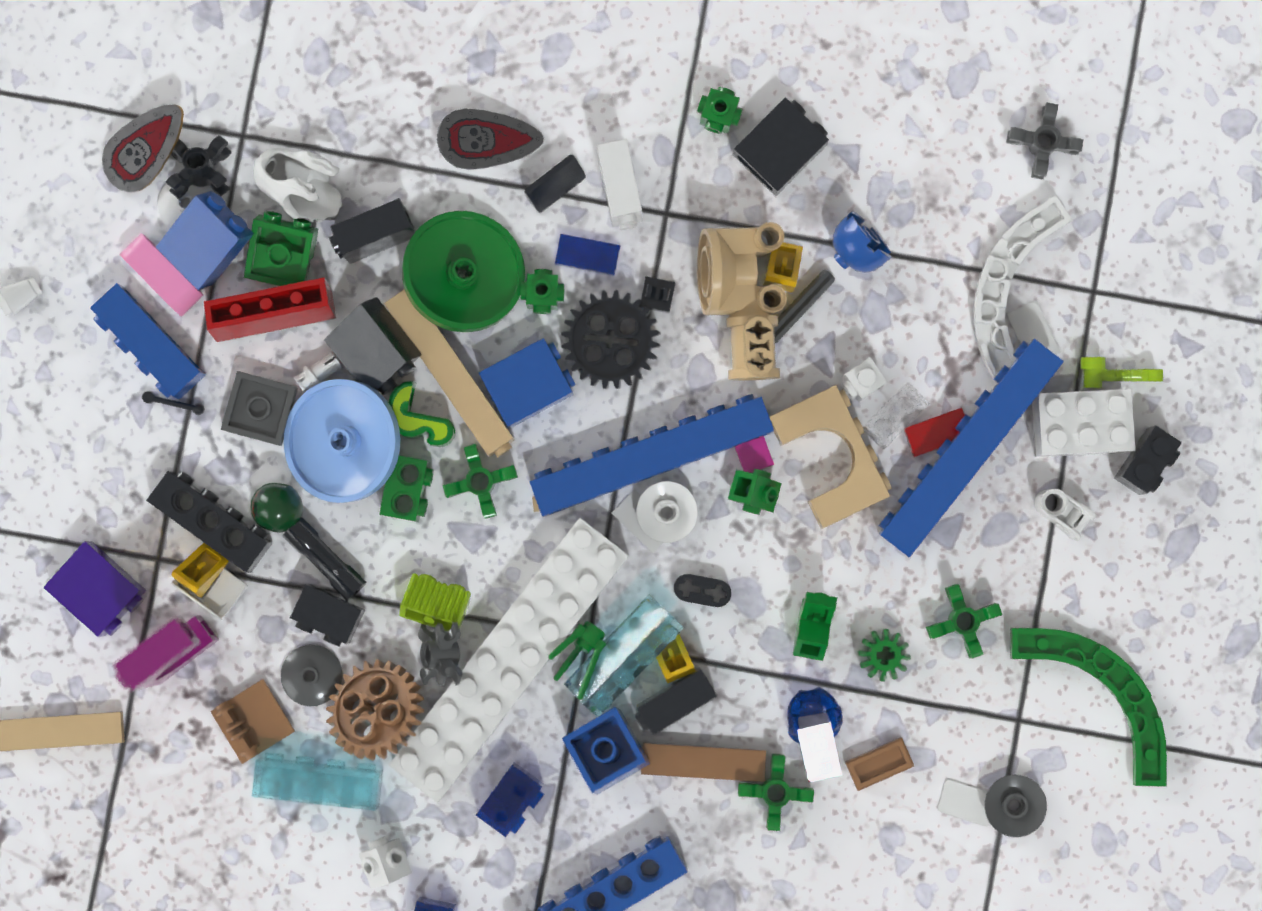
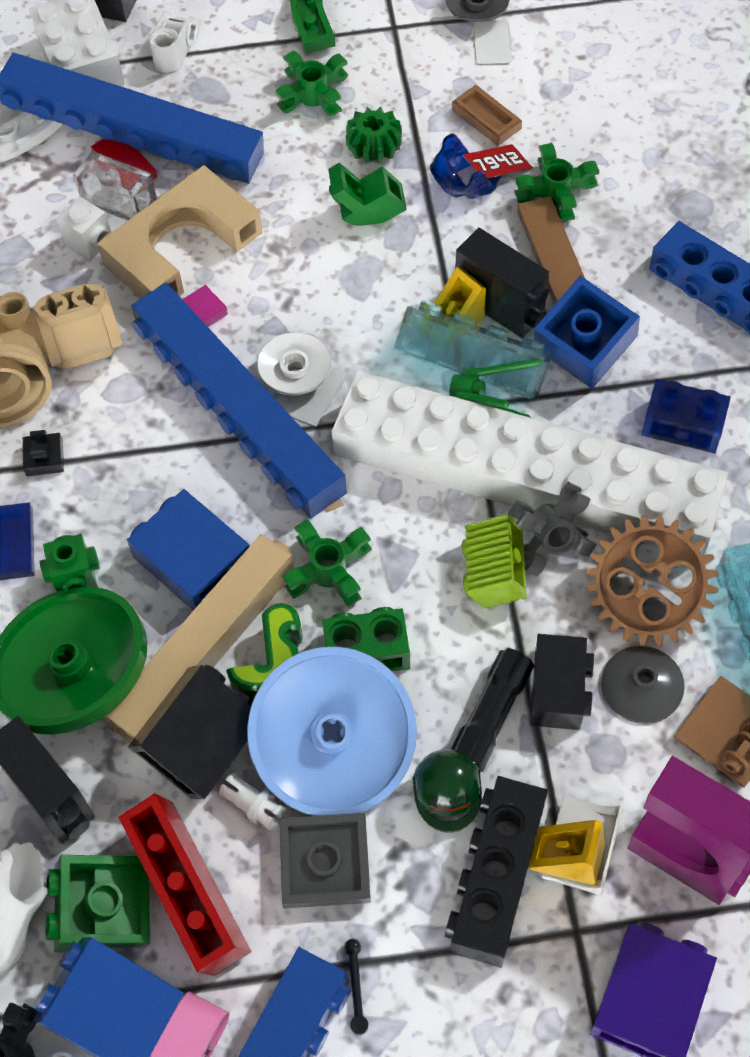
camera: 110 degrees left, 25 degrees down
(614, 312) = (74, 484): black gear -> none
(701, 598) = (376, 310): black beam -> none
(755, 491) = (236, 297): green brick -> none
(1096, 373) = (21, 44): lime brick -> none

